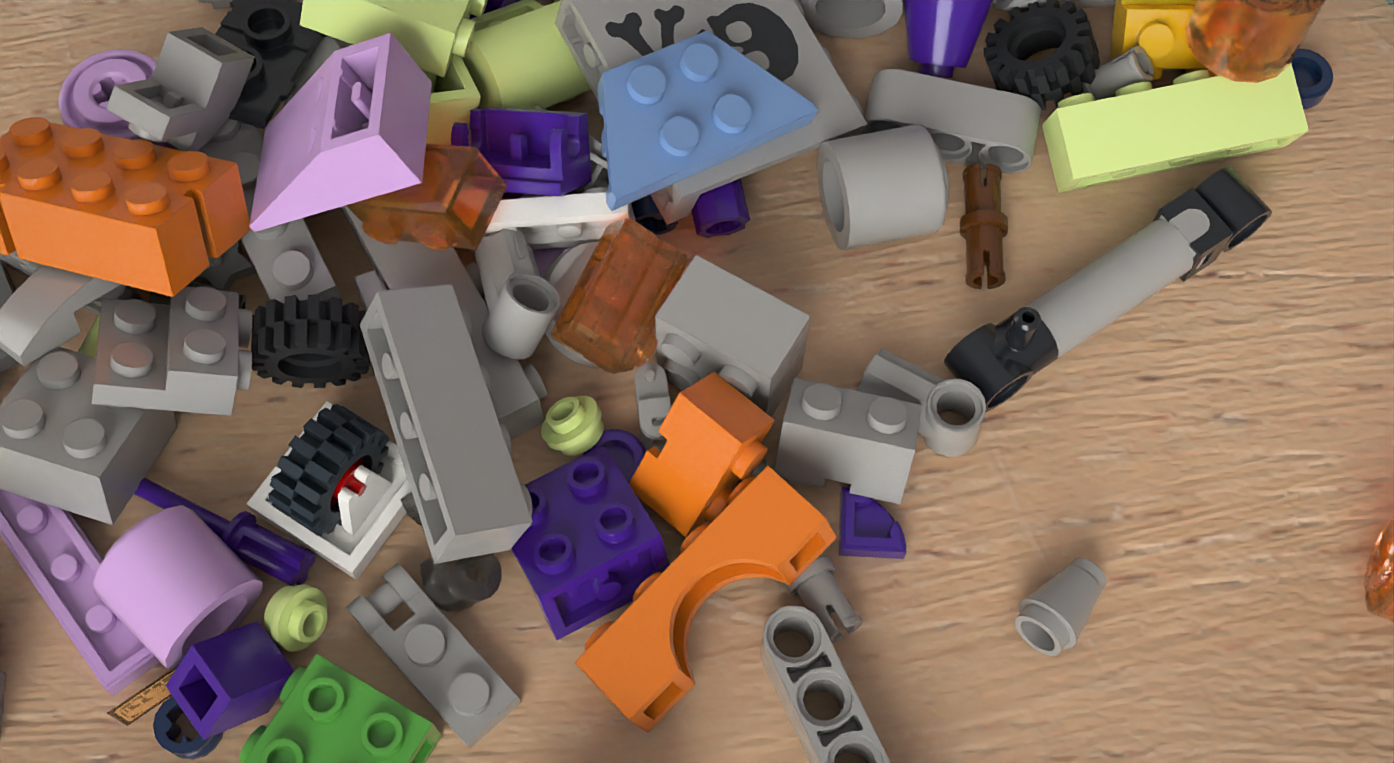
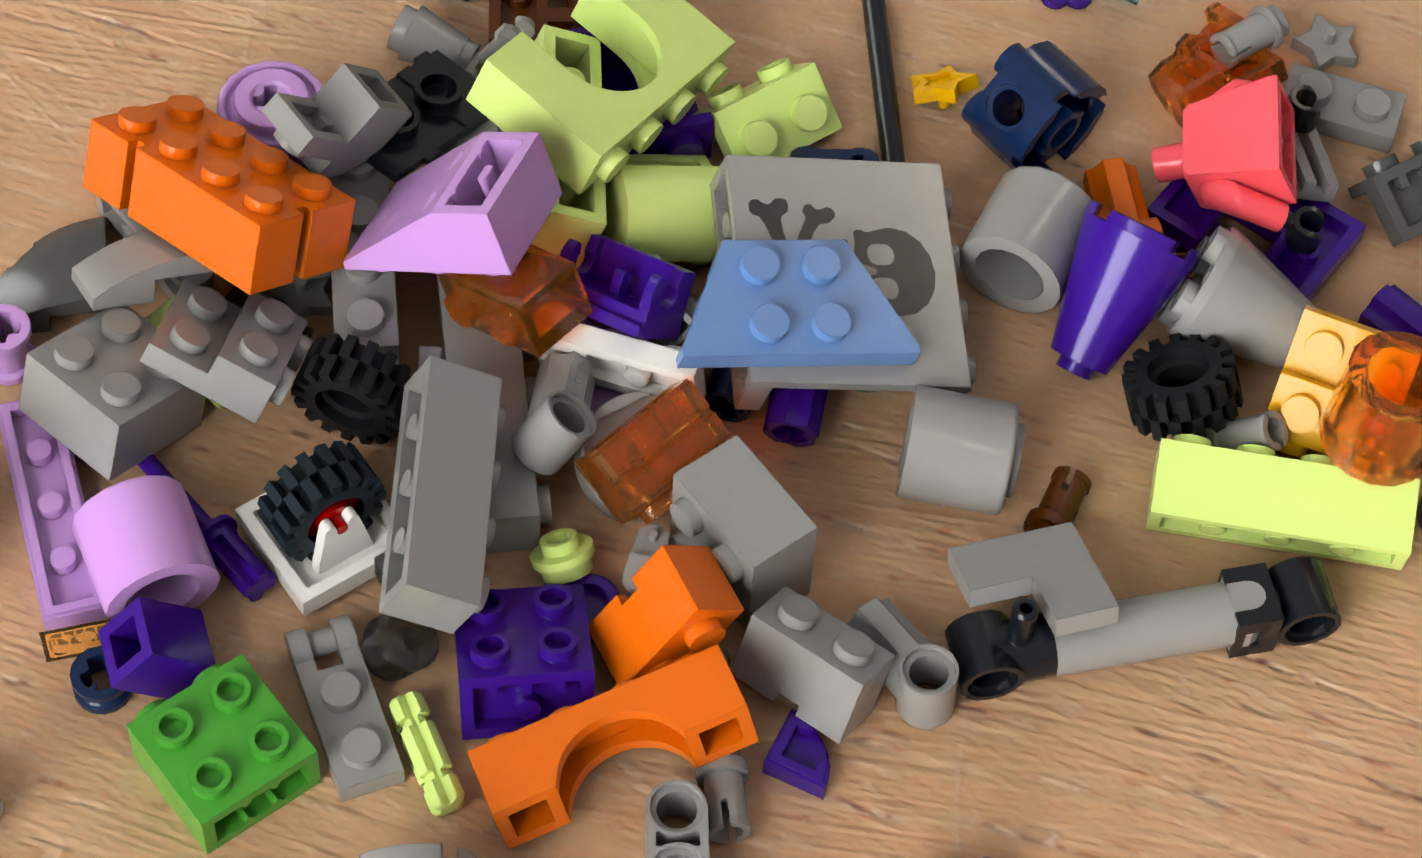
camera: 20 degrees right, 10 degrees down
(296, 616) = (236, 623): yellowish green plate -> none
(531, 669) = (427, 753): none -> yellowish green axle
(964, 119) = (1070, 419): light grey beam -> none
(1016, 265) = (1039, 562): none -> light grey tile

